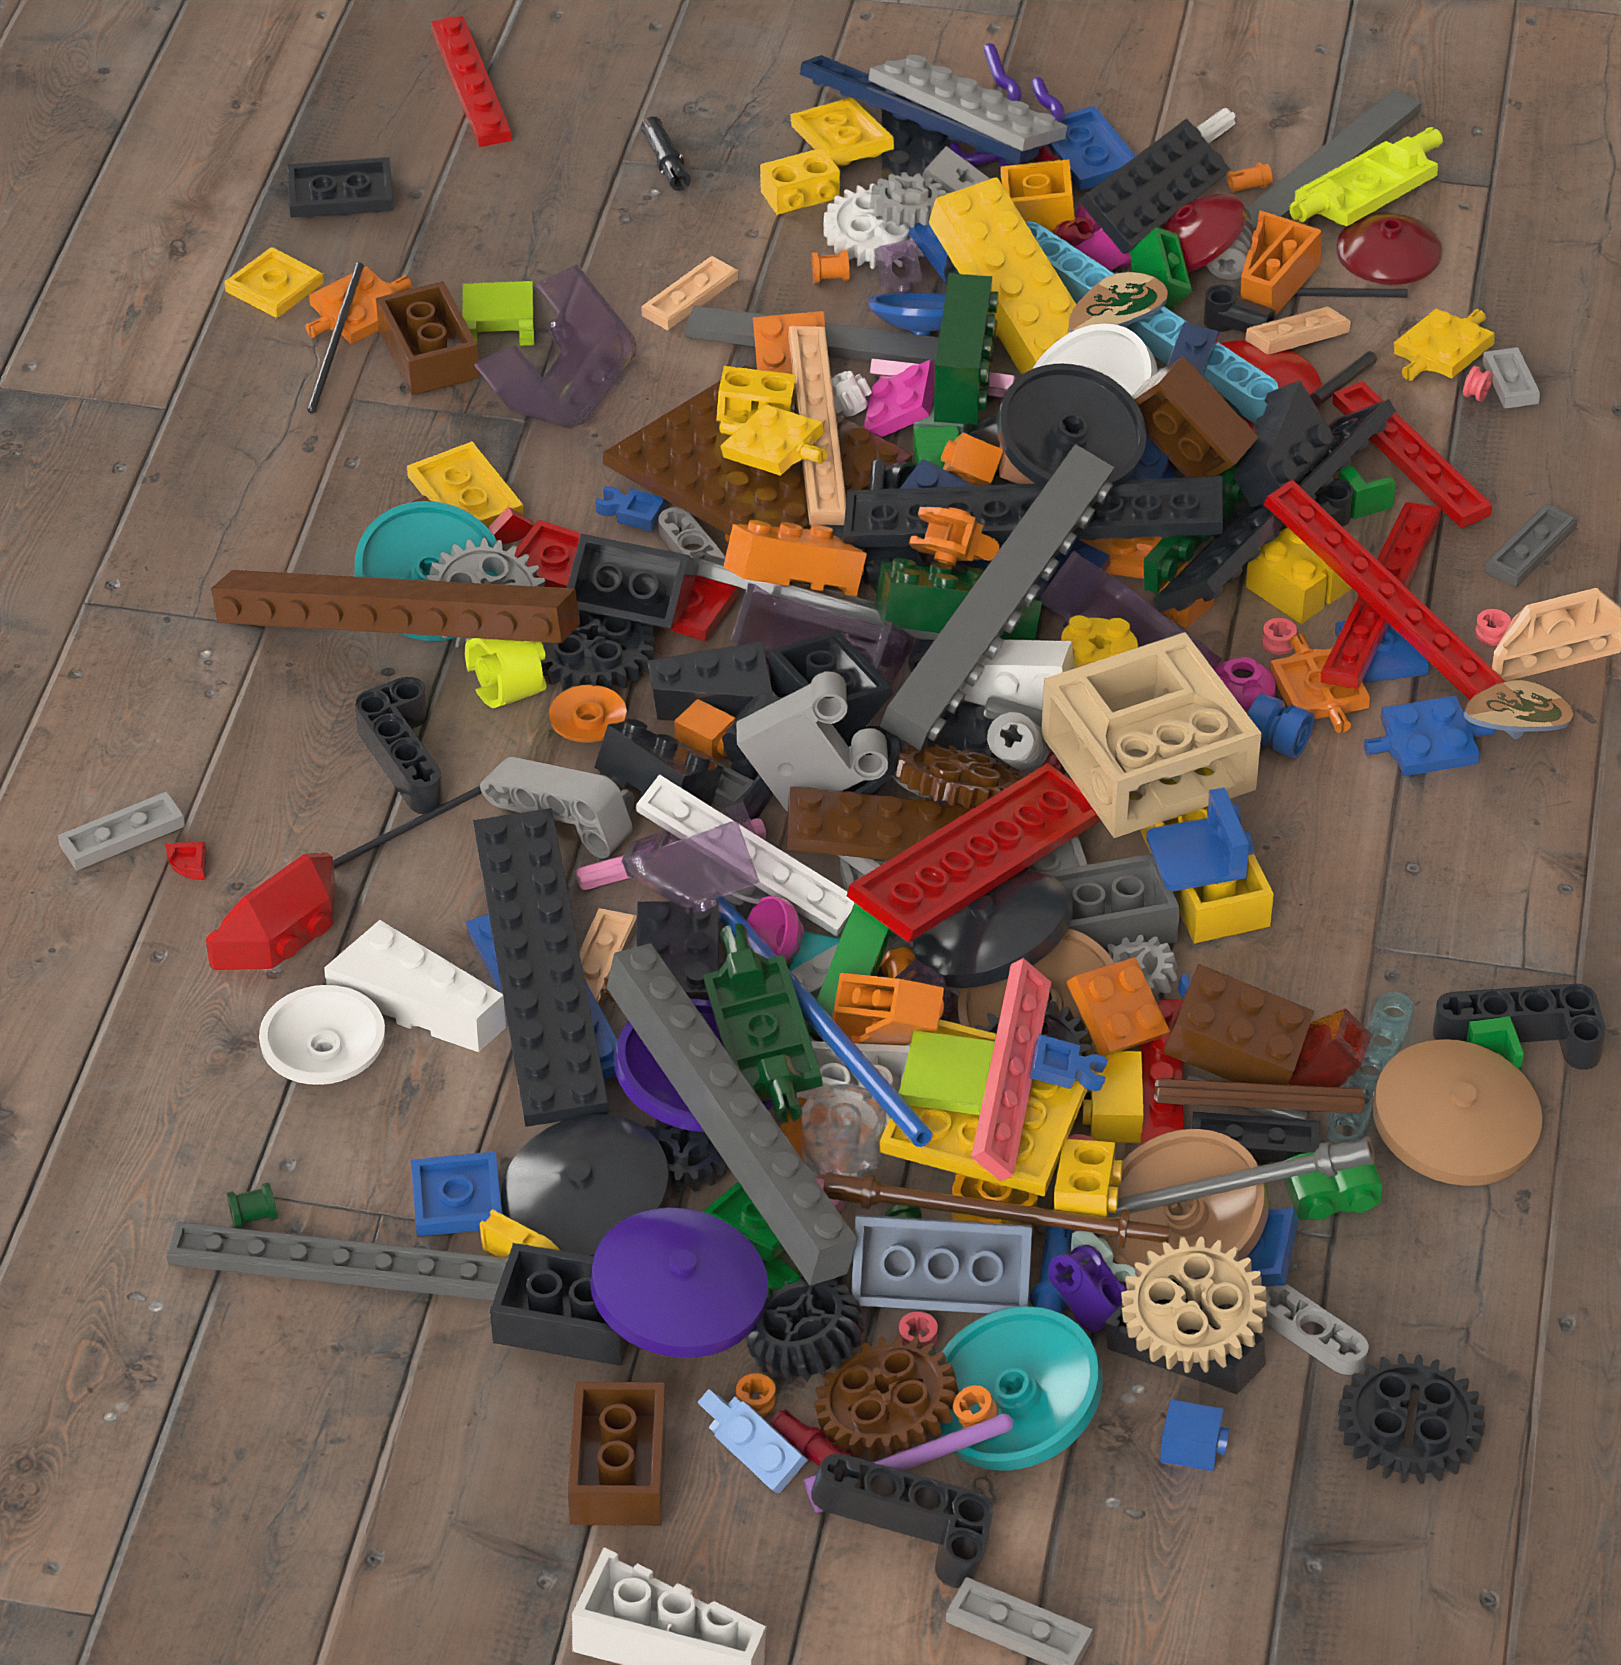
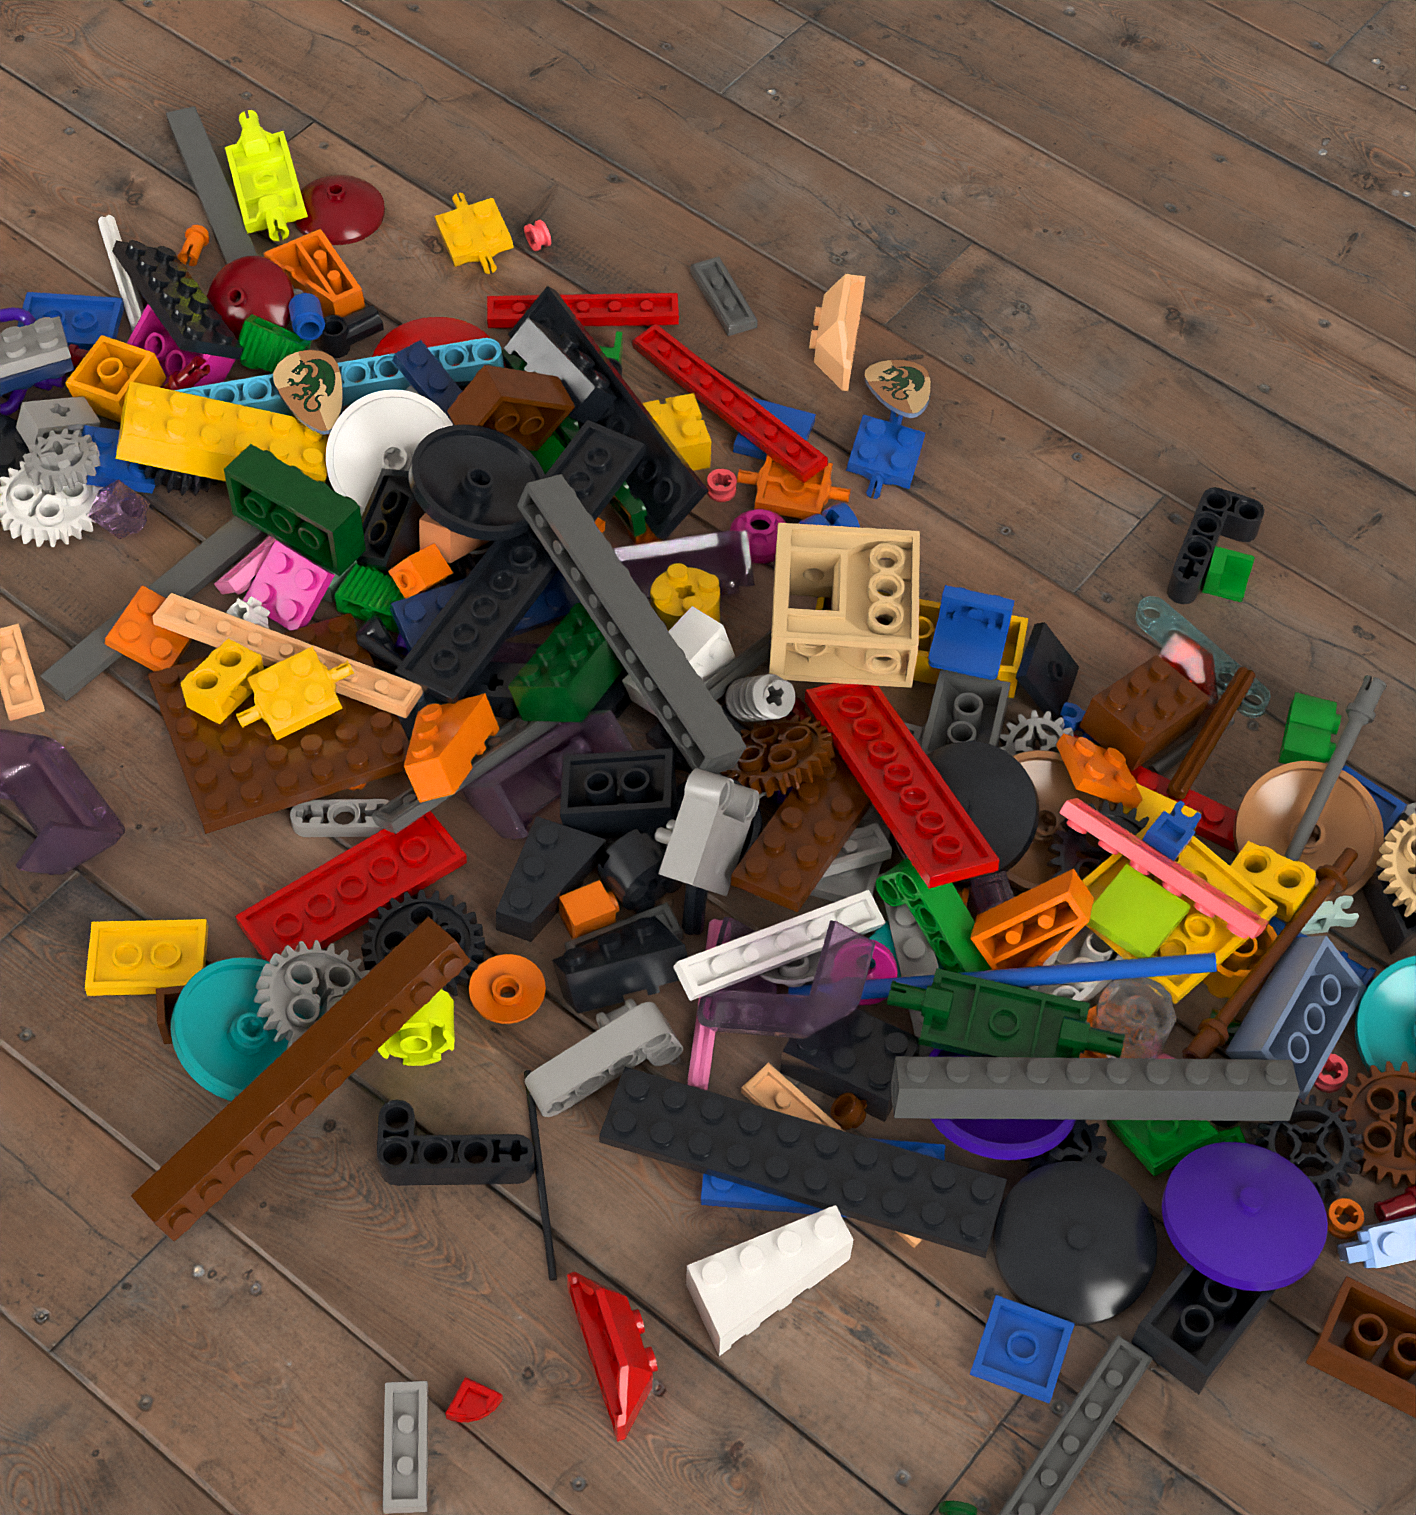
camera: 65 degrees left, 10 degrees up
(322, 1034) = (796, 1352): white dish -> none
(501, 1232) = (1107, 1324): yellow piece -> none
(511, 526) = (222, 942): red tile -> none
(631, 581) = (390, 881): black slope -> none
(634, 510) = (268, 836): blue plate -> none
(830, 266) = (72, 557): orange bush -> none
(910, 310) = (186, 519): blue dish -> none
(953, 537) = (528, 624): orange hinge -> none
(1092, 1288) = (1354, 931): dark purple piece -> none
(1207, 268) = (306, 316): none -> blue brick
(1232, 938) = (1047, 670): none -> black plate
(1263, 1136) = (1237, 757): black plate -> none
(1297, 330) = (398, 304): light nougat tile -> none
(1343, 378) = (471, 307): black bar -> none
(1352, 292) = (374, 249): black axle -> none
(1381, 590) = (746, 396): red tile -> none
(1457, 1112) = (1275, 625): medium nougat dish -> none
(1488, 619) = (795, 366): coral bush -> none
(1511, 377) = (556, 215): light grey plate -> none

